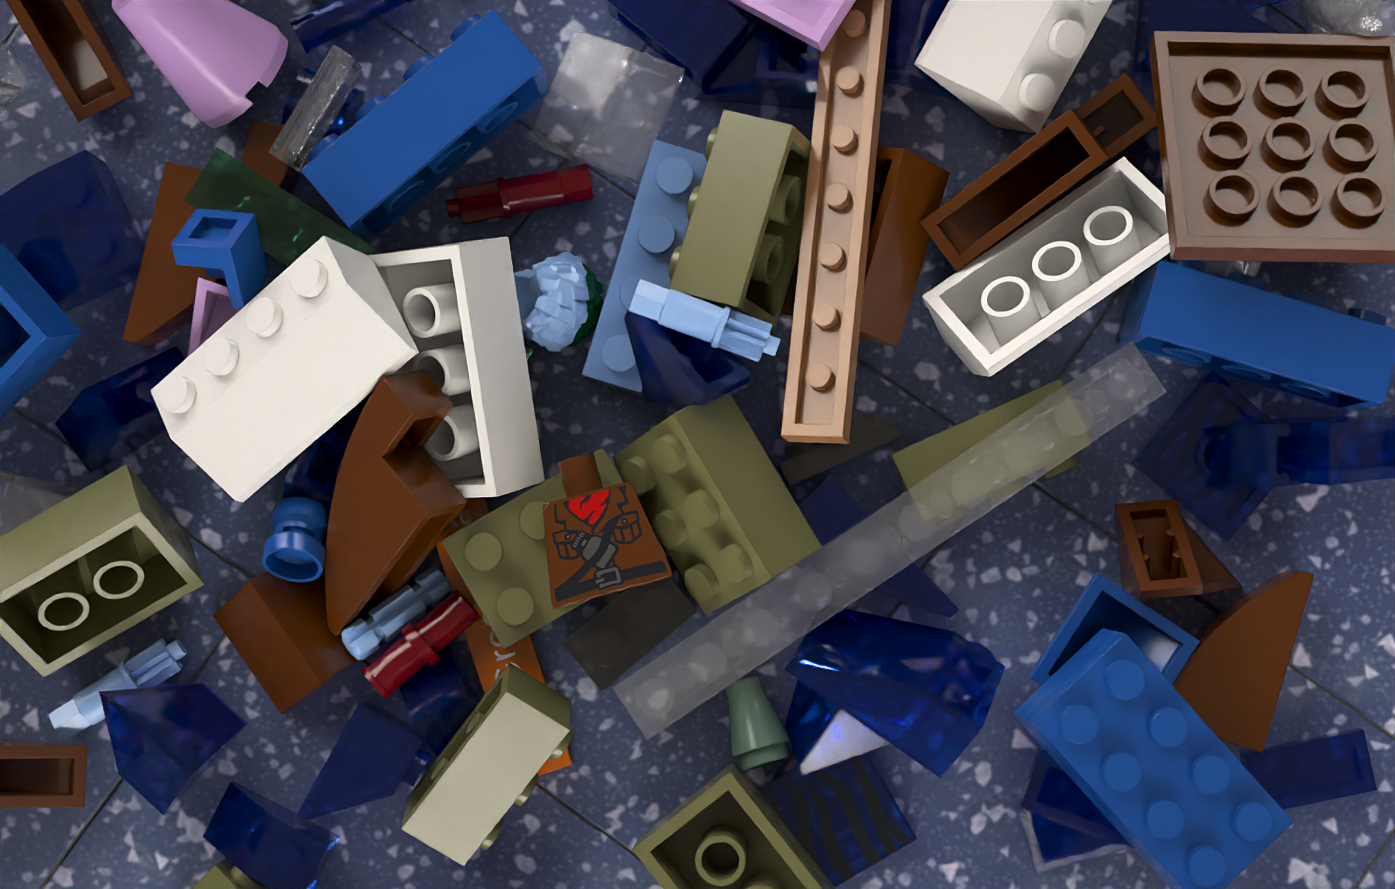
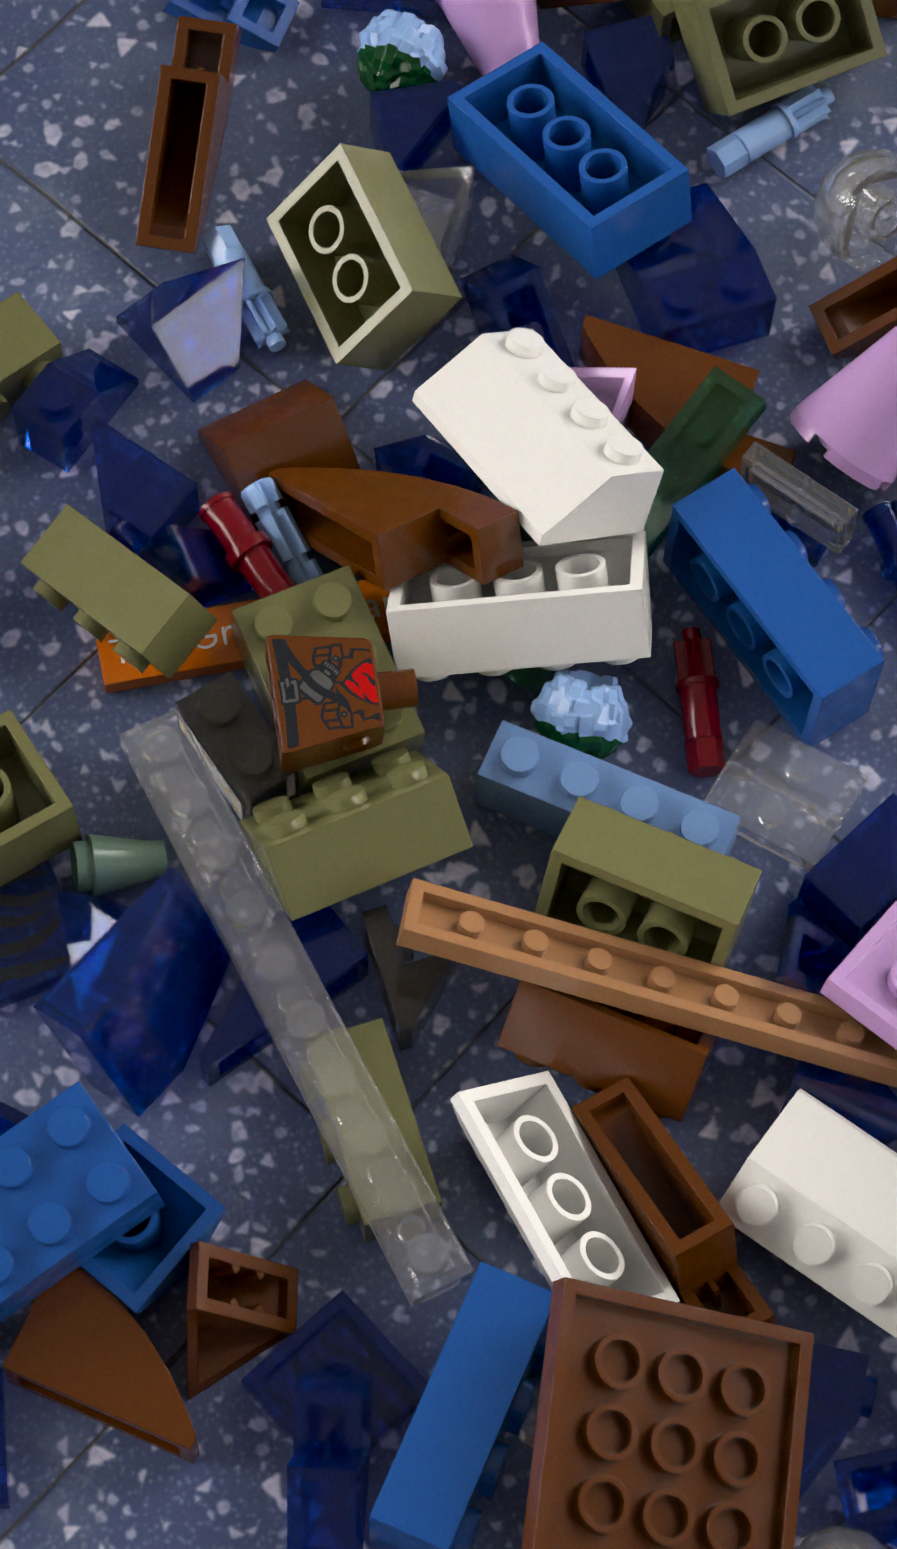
camera: 90 degrees right, 20 degrees down
(227, 248) = (664, 397): blue panel -> none
(296, 546) = (364, 445): blue wheel -> none
(680, 366) = (513, 815): clear blue slope -> none
(705, 321) = (542, 821): light blue piece -> none

